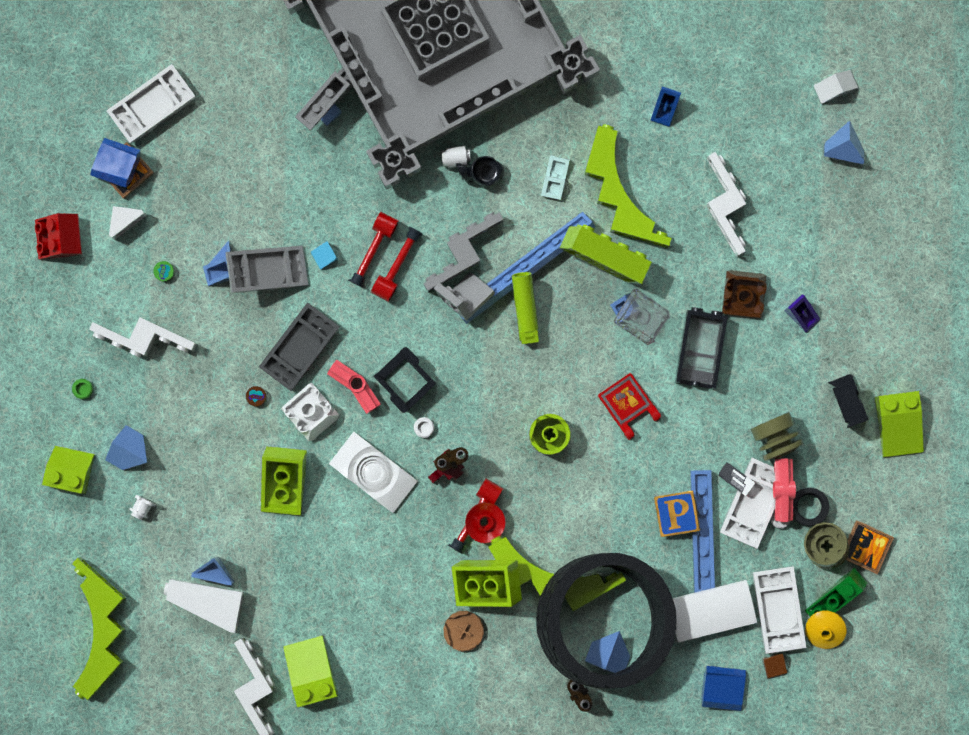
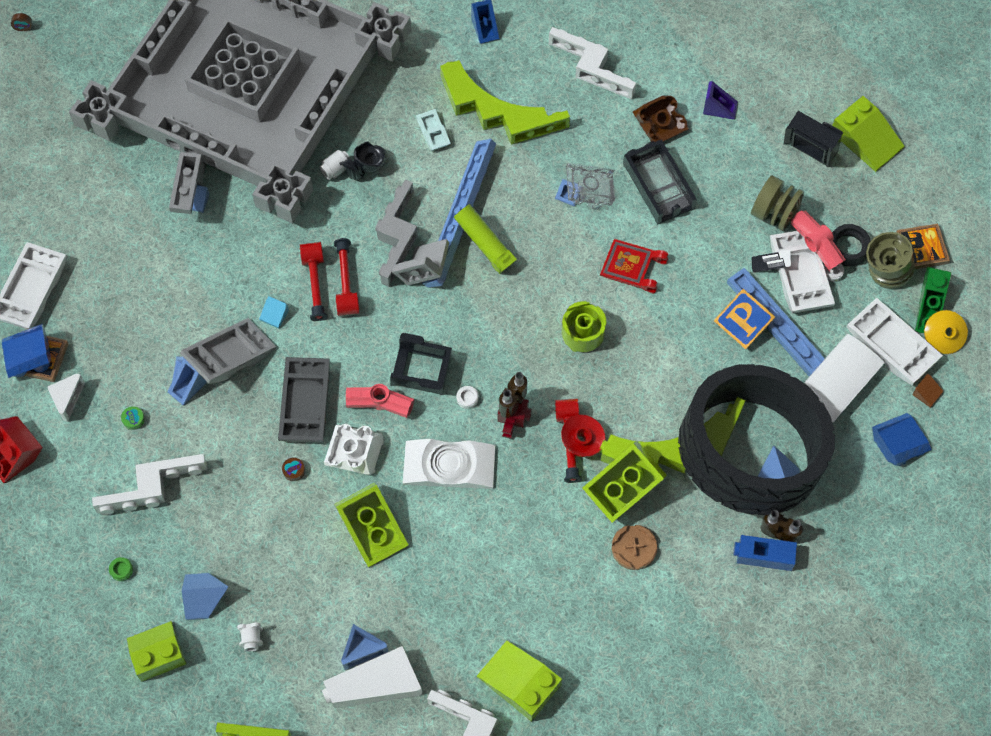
camera: 35 degrees left, 20 degrees down
(553, 703) = (765, 552): none -> blue brick
(605, 254) = (521, 151): lime brick -> none

